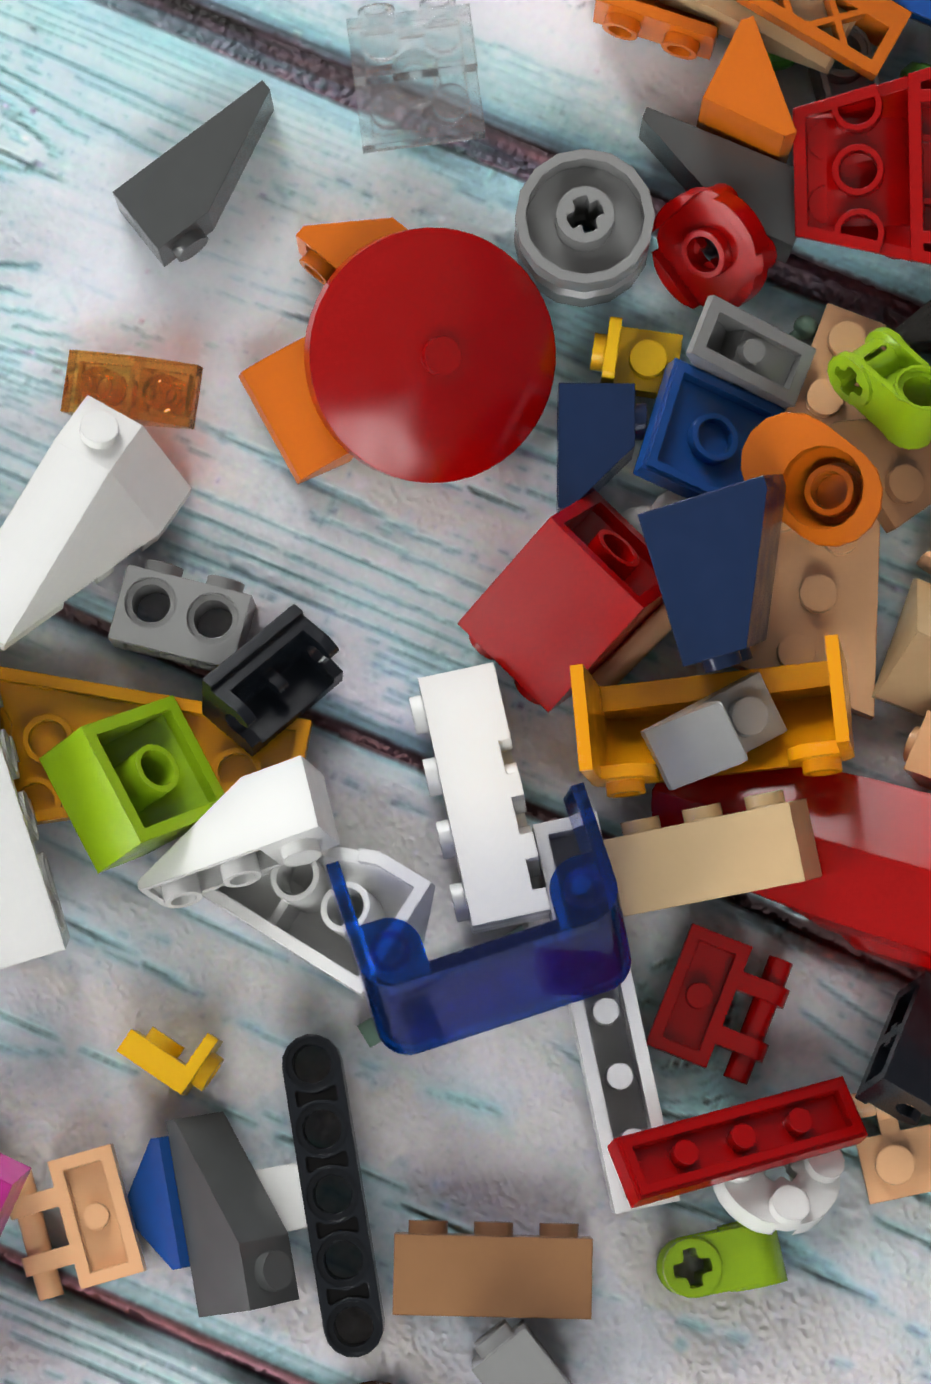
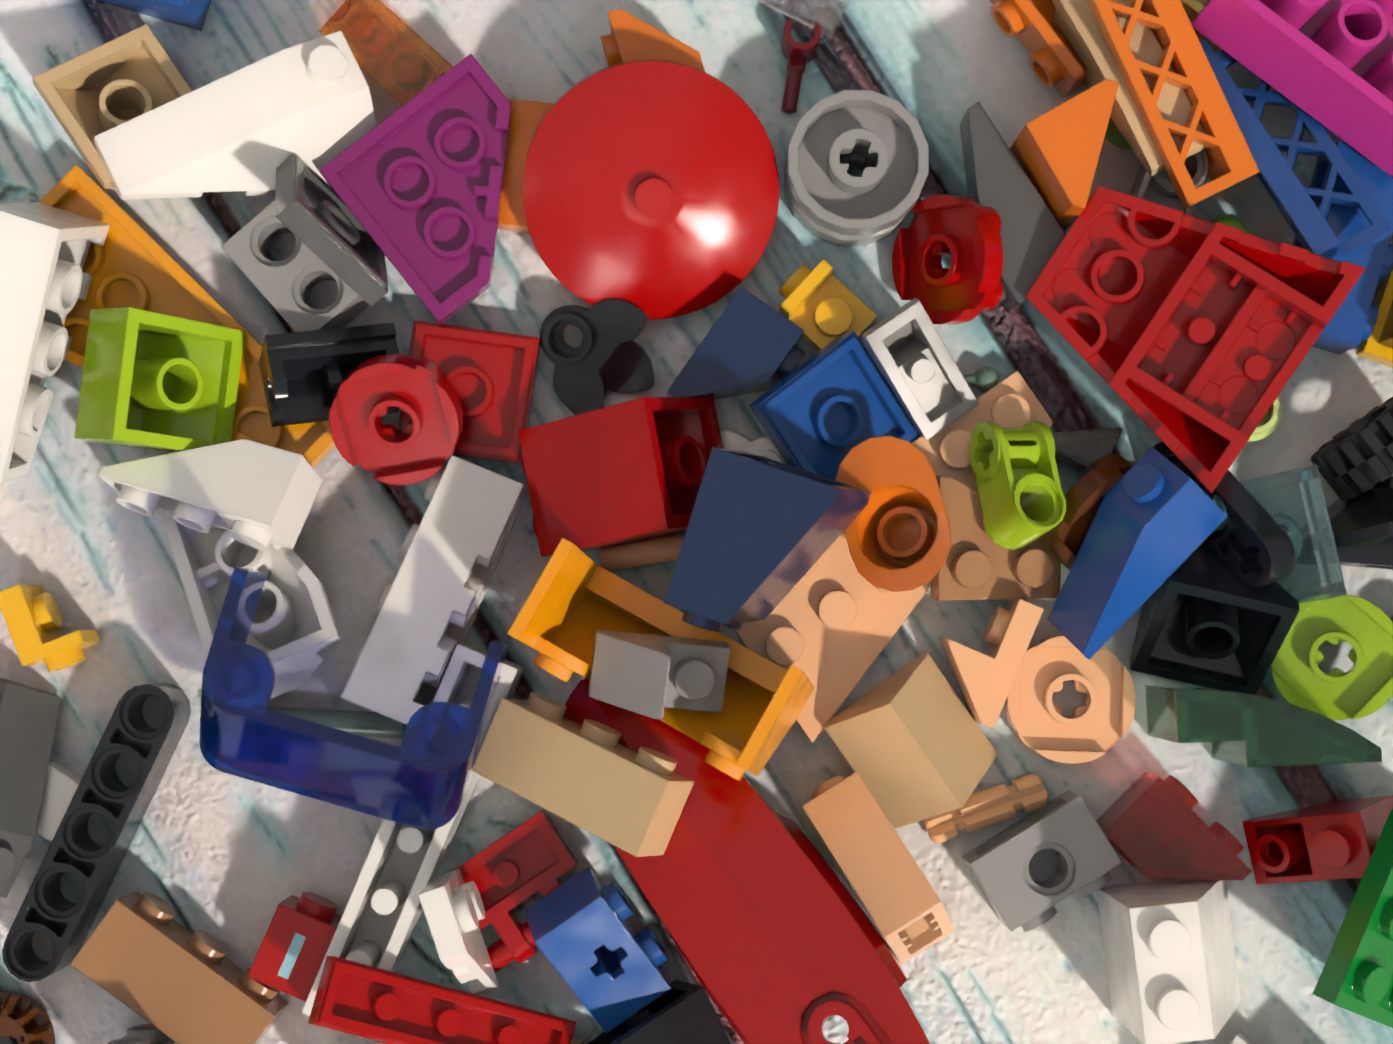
camera: 35 degrees right, 5 degrees up
(195, 560) = (329, 229): none -> dark grey plate
(249, 472) = (433, 186): none -> magenta plate
(353, 714) = (415, 388): none -> red plate
(391, 623) = (493, 382): none -> red plate
(469, 170) = (797, 55): none -> dark red hand
(484, 519) = (604, 359): none -> black plate
(570, 1172) = (296, 944): none -> red brick
(689, 1045) = (453, 919): none -> white wing
(787, 992) = (607, 979): none -> blue brick

